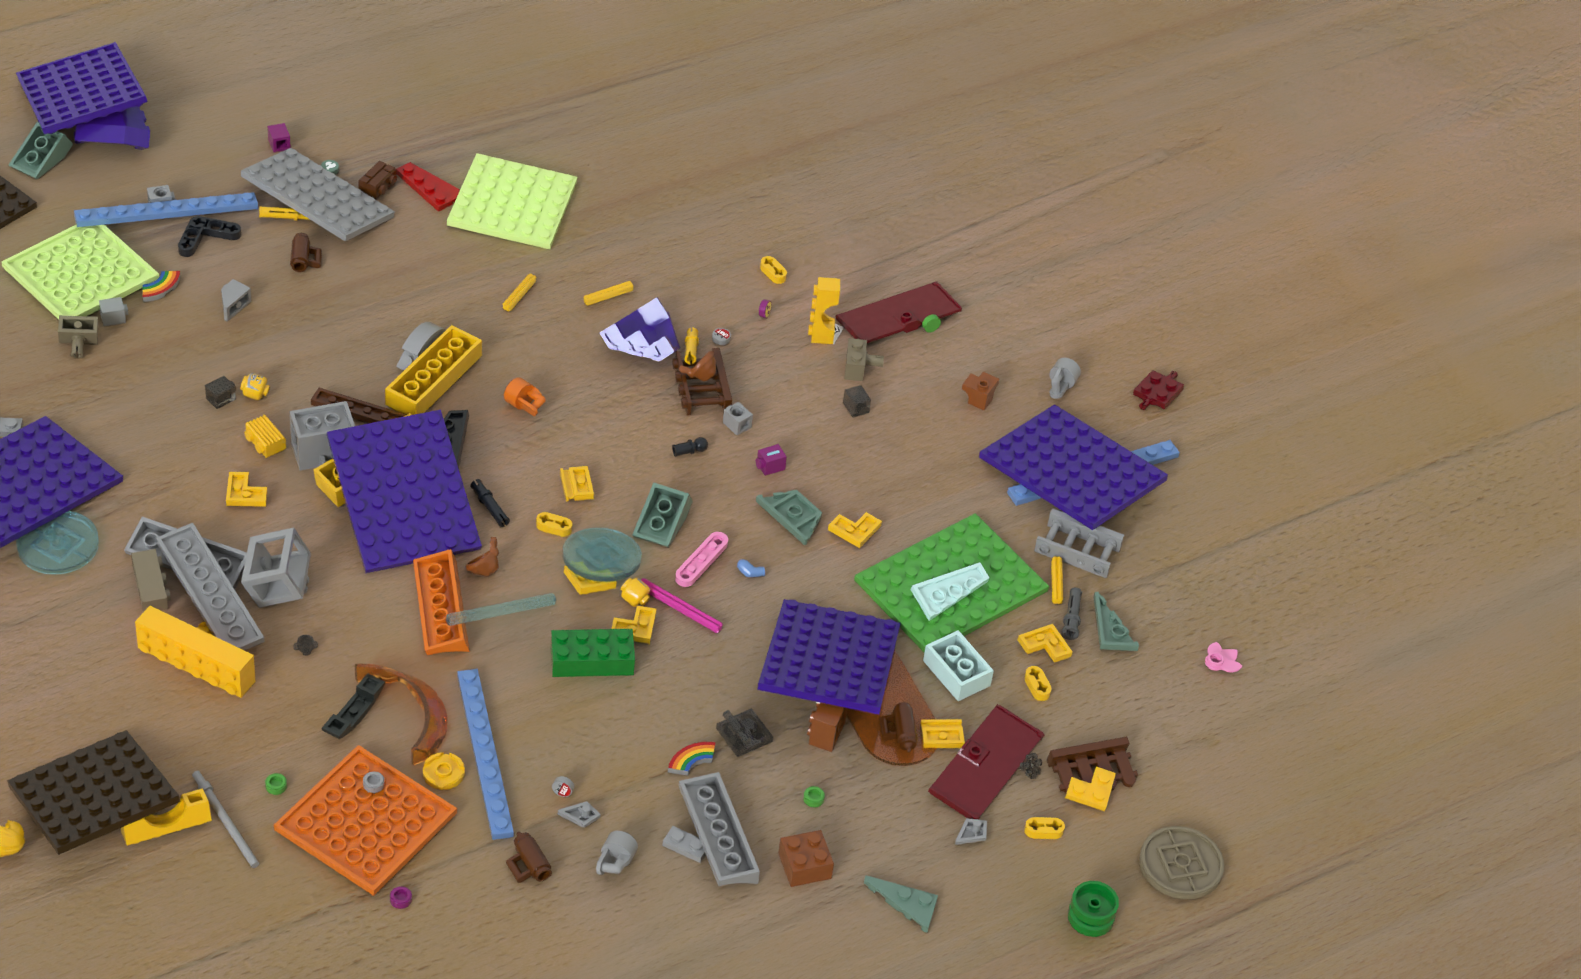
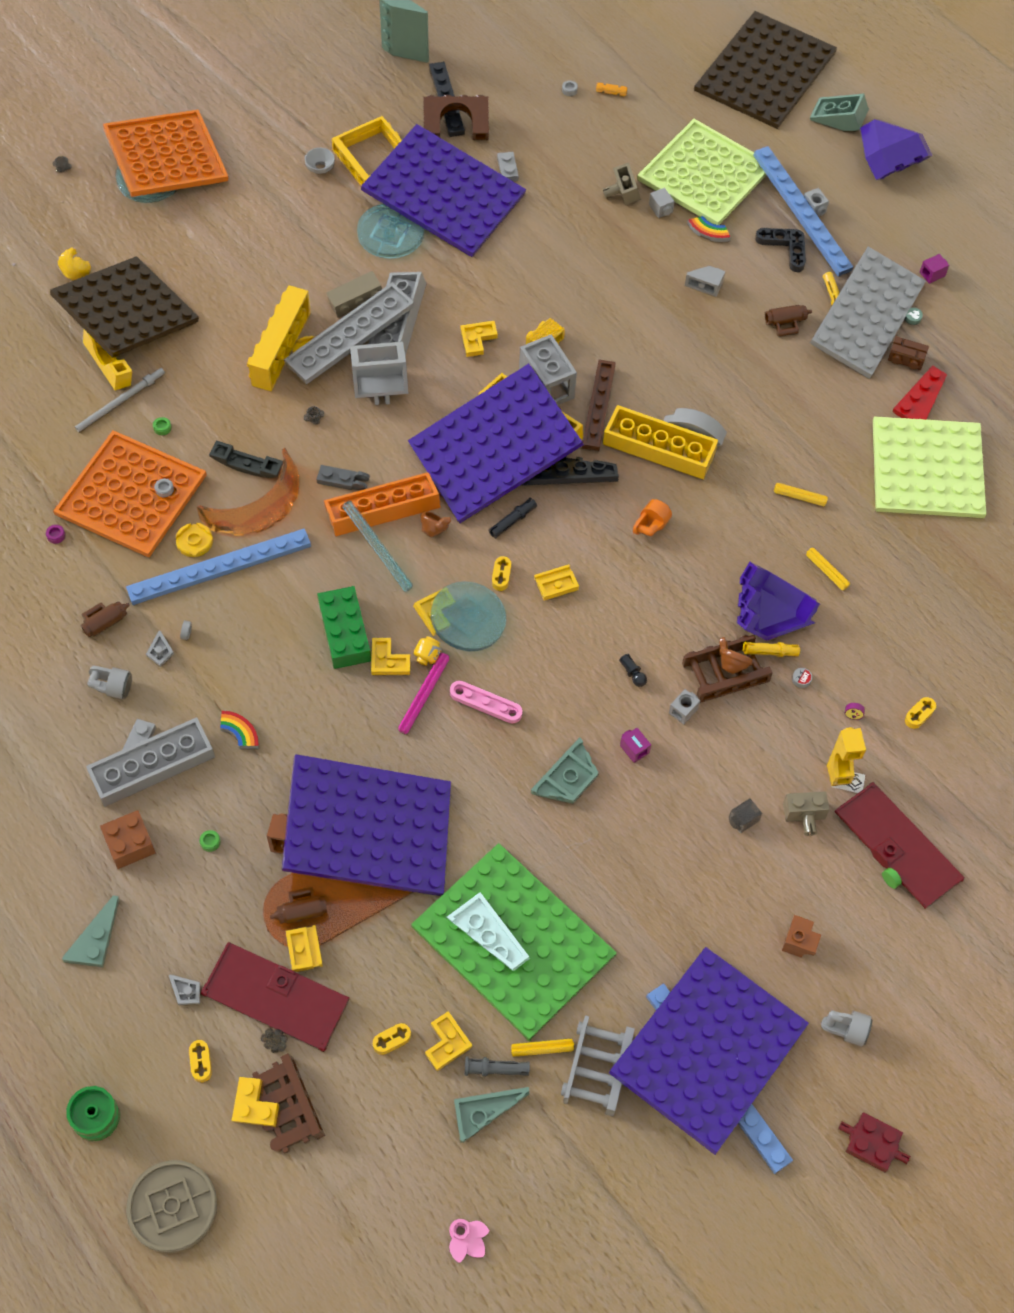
camera: 85 degrees right, 15 degrees up
(81, 88) = (919, 110): dark purple plate -> none
(220, 392) = (588, 295): clear smoke brick -> none
(254, 386) = (602, 317): yellow head -> none
(397, 633) = (342, 478): none -> dark grey hinge
(662, 515) = (533, 659): sand green slope -> none
(744, 732) = (272, 768): clear smoke plate -> none
(749, 570) = (482, 746): medium blue arm -> none
(857, 532) = (557, 837): yellow plate -> none
(958, 665) = (389, 952): light aqua brick -> none

